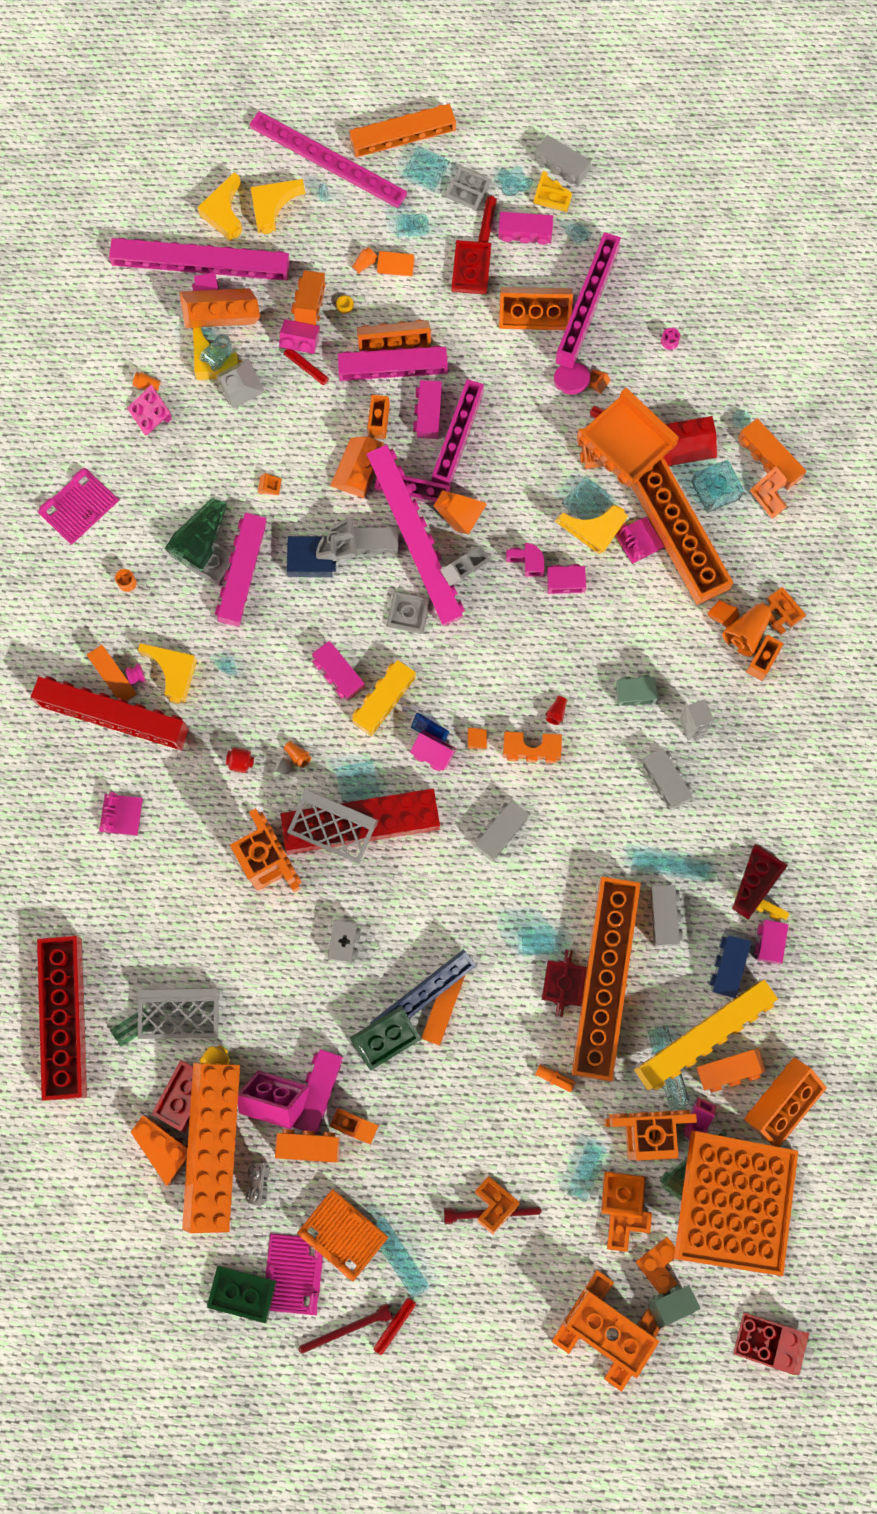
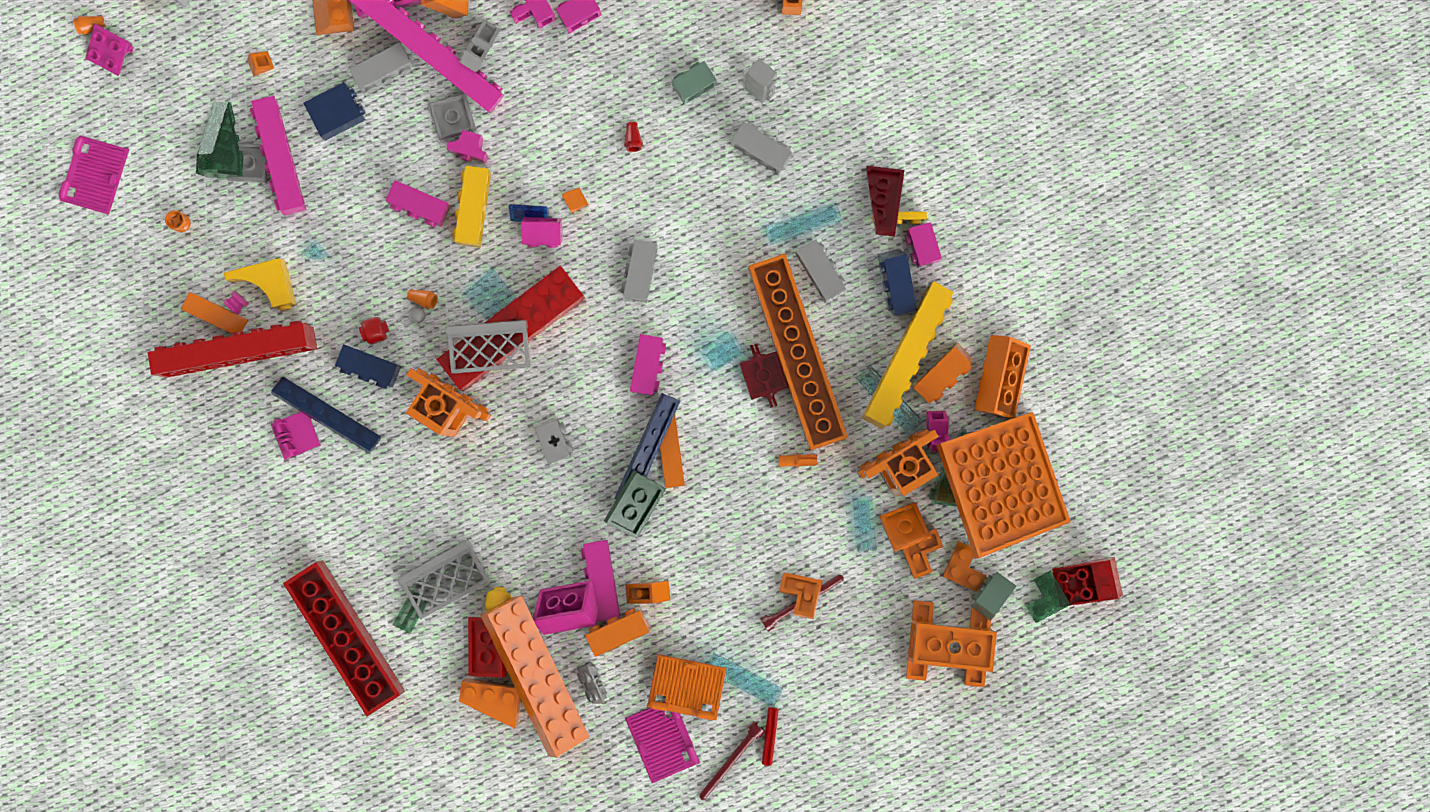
camera: 30 degrees left, 10 degrees up
(157, 812) = (326, 415): none -> dark blue plate
(216, 788) = (367, 367): none -> dark blue brick
(242, 1294) = (628, 780): dark green plate -> none
(339, 542) = (353, 84): light grey brick -> none
(408, 645) = (468, 147): none -> dark pink brick
(464, 918) = (647, 365): none -> dark pink brick
(515, 748) = (614, 191): orange arch -> none
(729, 1342) = (1052, 600): none -> clear green plate

